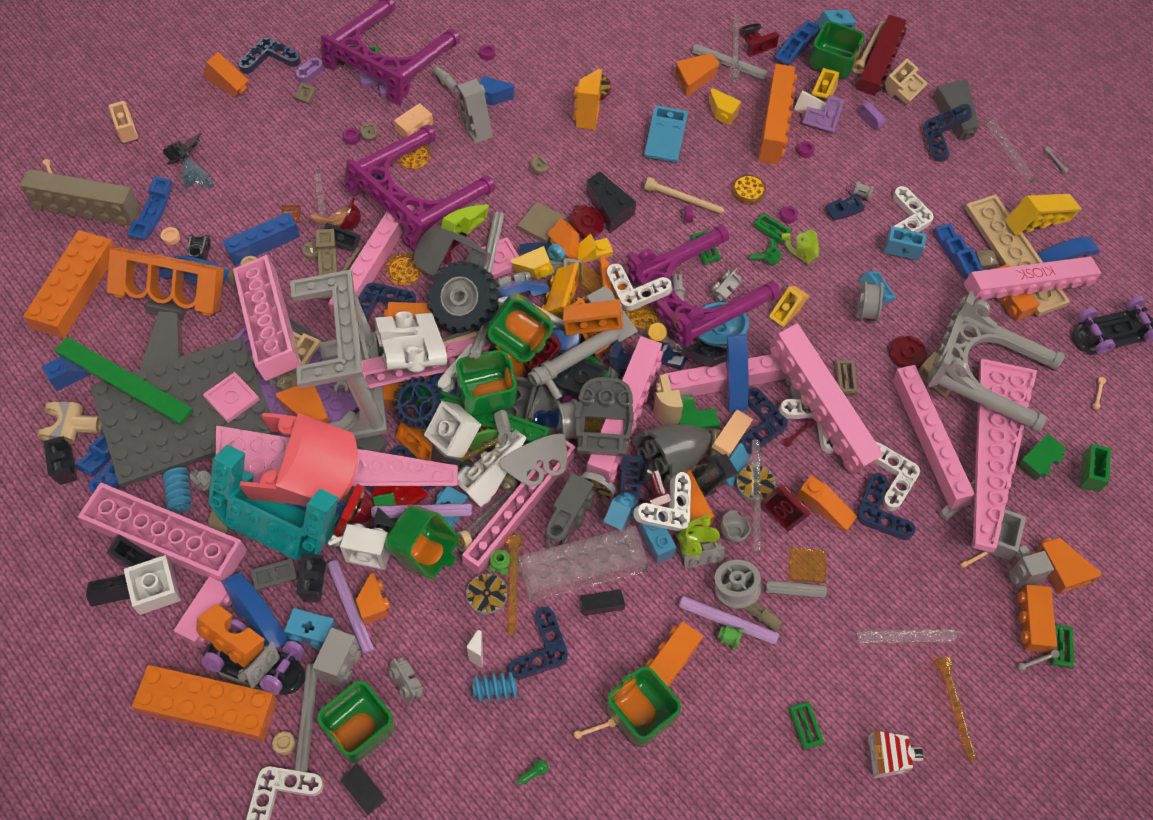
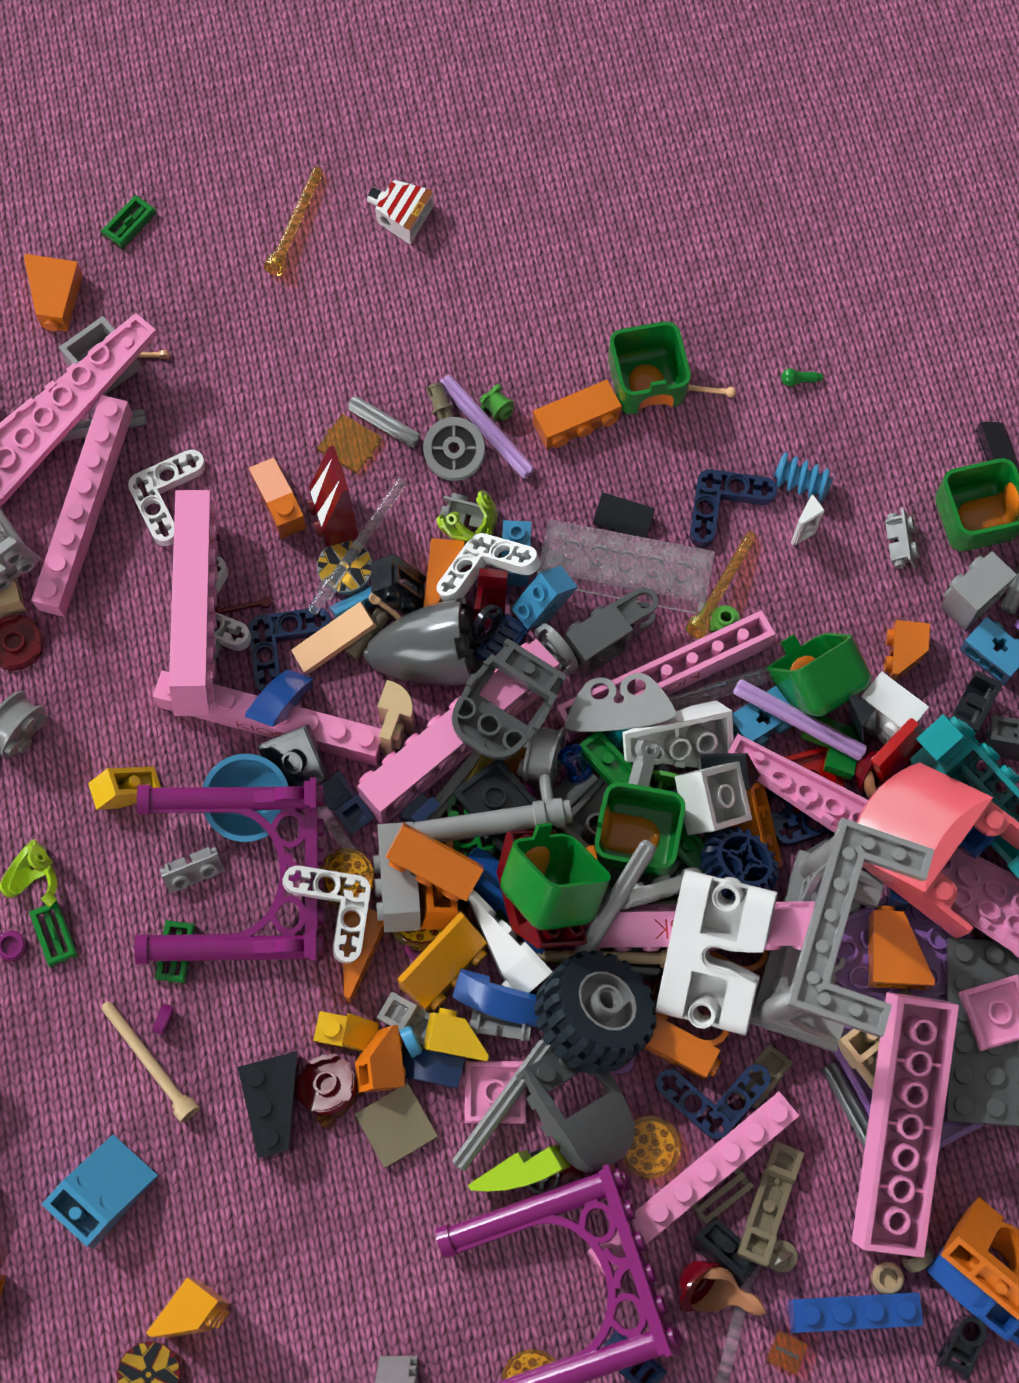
camera: 150 degrees left, 10 degrees up
(350, 607) = (934, 658): lavender axle -> none
(464, 540) = (760, 659): tan tile -> none
(479, 449) = (685, 756): clear yellow piece -> none
(486, 594) = (757, 591): tile -> none
(538, 165) = (340, 1243): dark tan tile -> none
(588, 279) = (387, 966): clear yellow piece -> none
(657, 331) = (340, 833): yellow tile -> none
(677, 286) = (264, 895): light grey pin -> none
(702, 418) = (362, 687): green tile -> none
(735, 526) = (410, 520): light grey hair -> none
(749, 189) = (38, 1023): tile -> none
(771, 256) = (89, 882): green piece -> none
(792, 710) = (468, 301): green tile -> none
(844, 363) = (133, 655): dark tan tile -> none
(874, 510) = (222, 463): dark blue beam -> none
(916, 635) = (293, 312): clear axle -> none
(1030, 568) = (101, 296): light grey brick -> none
(1037, 618) = (133, 255): orange brick -> none
(1054, 654) = (146, 213): light grey hinge -> none

